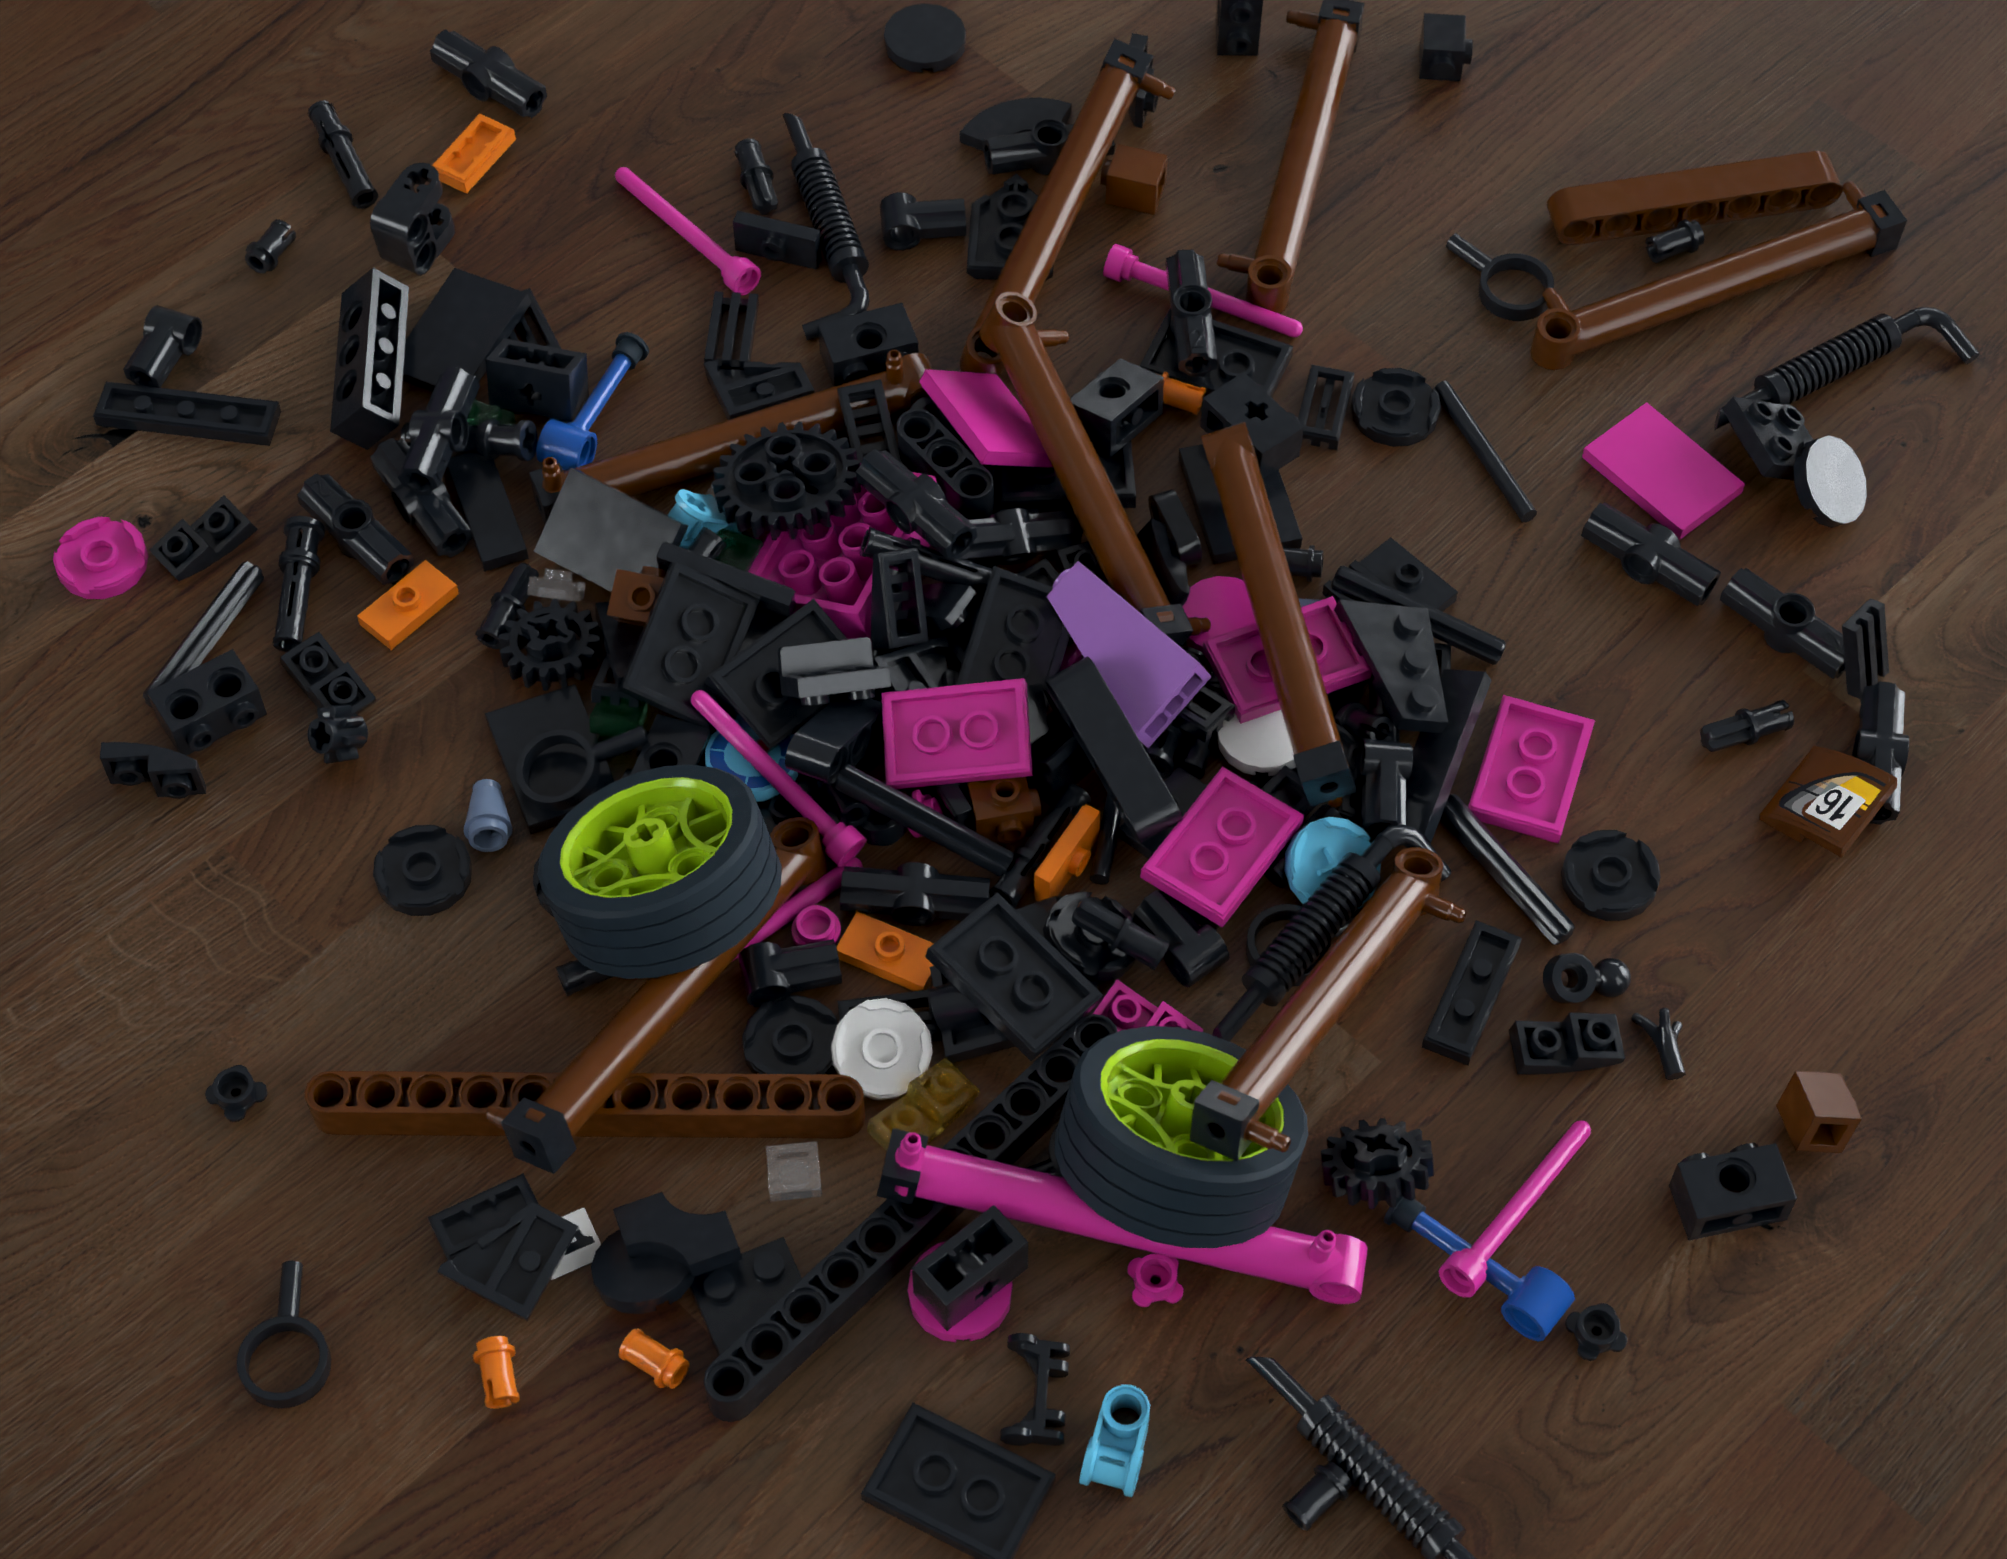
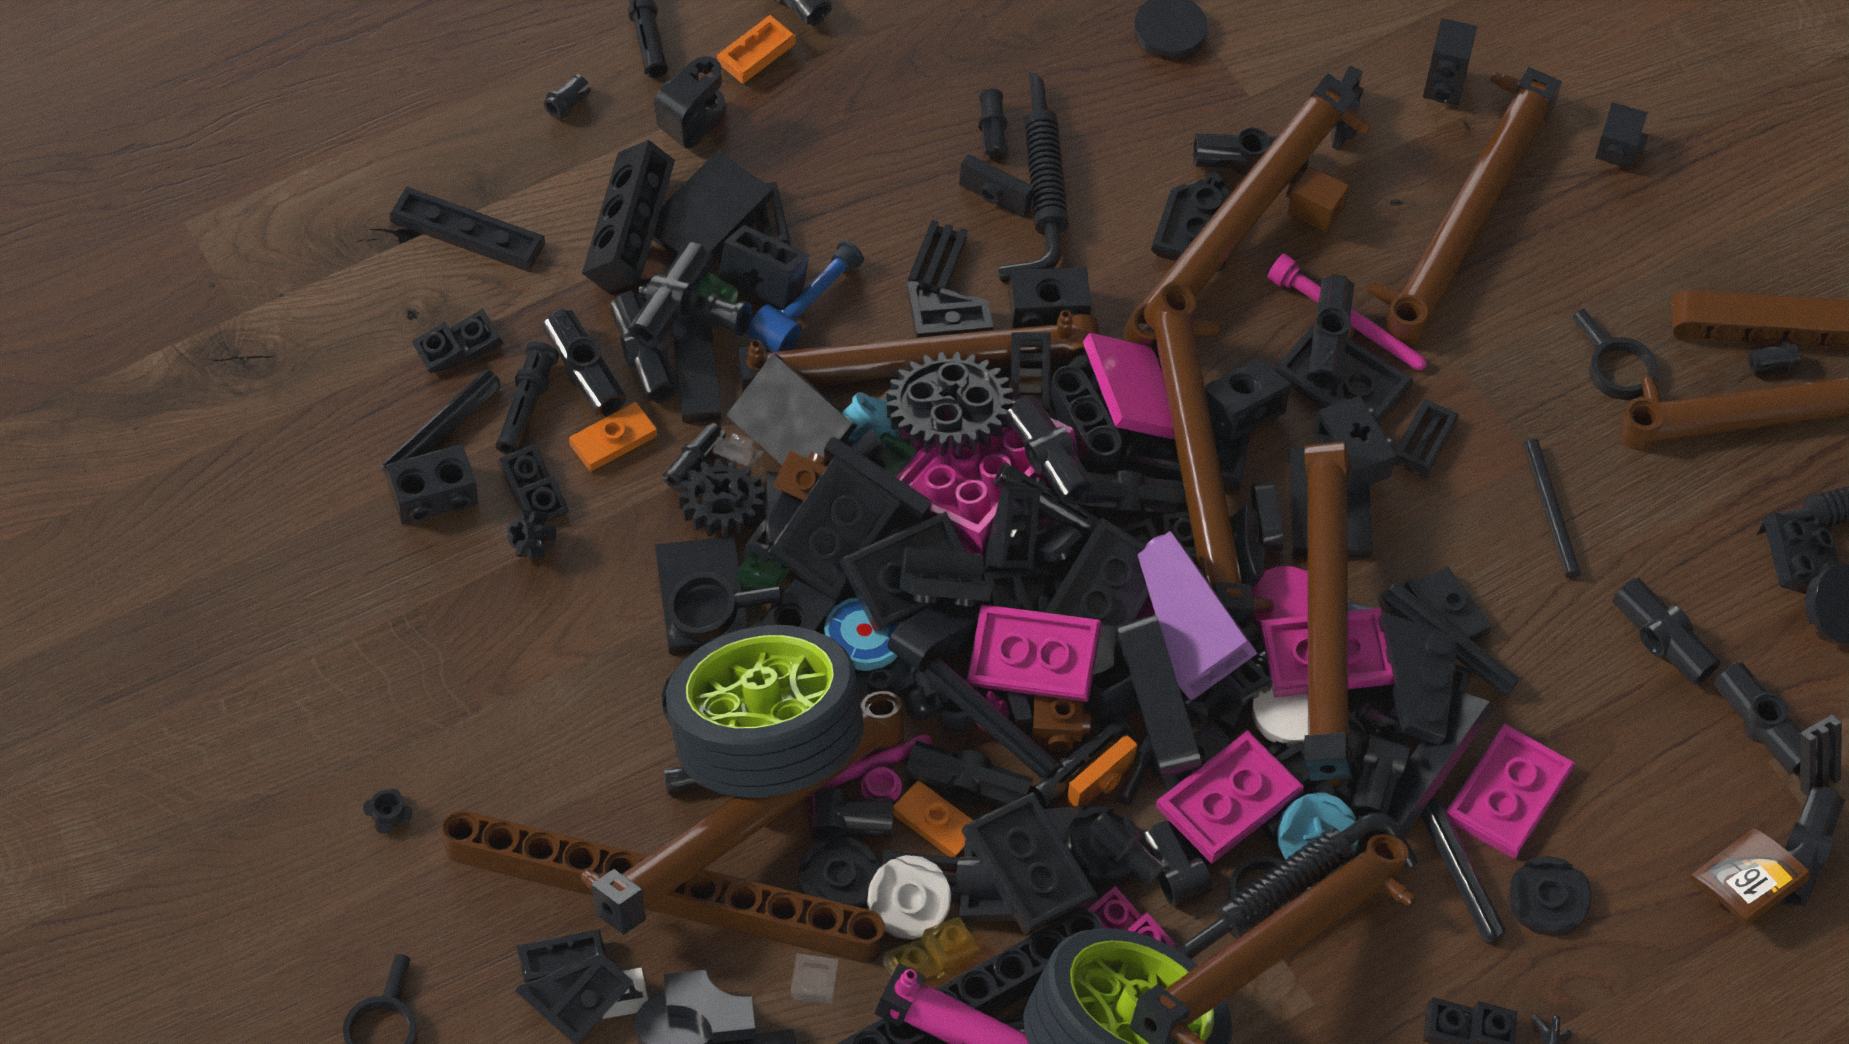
camera: 10 degrees right, 0 degrees up
(100, 558) = (370, 339): dark pink tile -> none
(164, 341) = (463, 159): black piece -> none
(169, 771) = (389, 534): black slope -> none
(422, 870) = (575, 663): black tile -> none
(487, 817) = (637, 632): sand blue cone -> none
(737, 272) = (955, 207): dark pink piece -> none
(840, 841) = (918, 718): dark pink piece -> none
(909, 220) = (1113, 193): black piece -> none
(1012, 118) = (1228, 119): black tile -> none
(1182, 394) = (1304, 399): orange pin -> none
(1305, 562) = (1366, 570): black pin -> none
(1395, 407) = (1486, 452): black tile -> none
(1471, 992) = (1405, 965): black tile -> none
(1608, 977) = (1522, 979): black plate -> none
(1663, 470) = (1700, 560): dark pink tile -> none
(1746, 726) = (1702, 798): black axle -> none

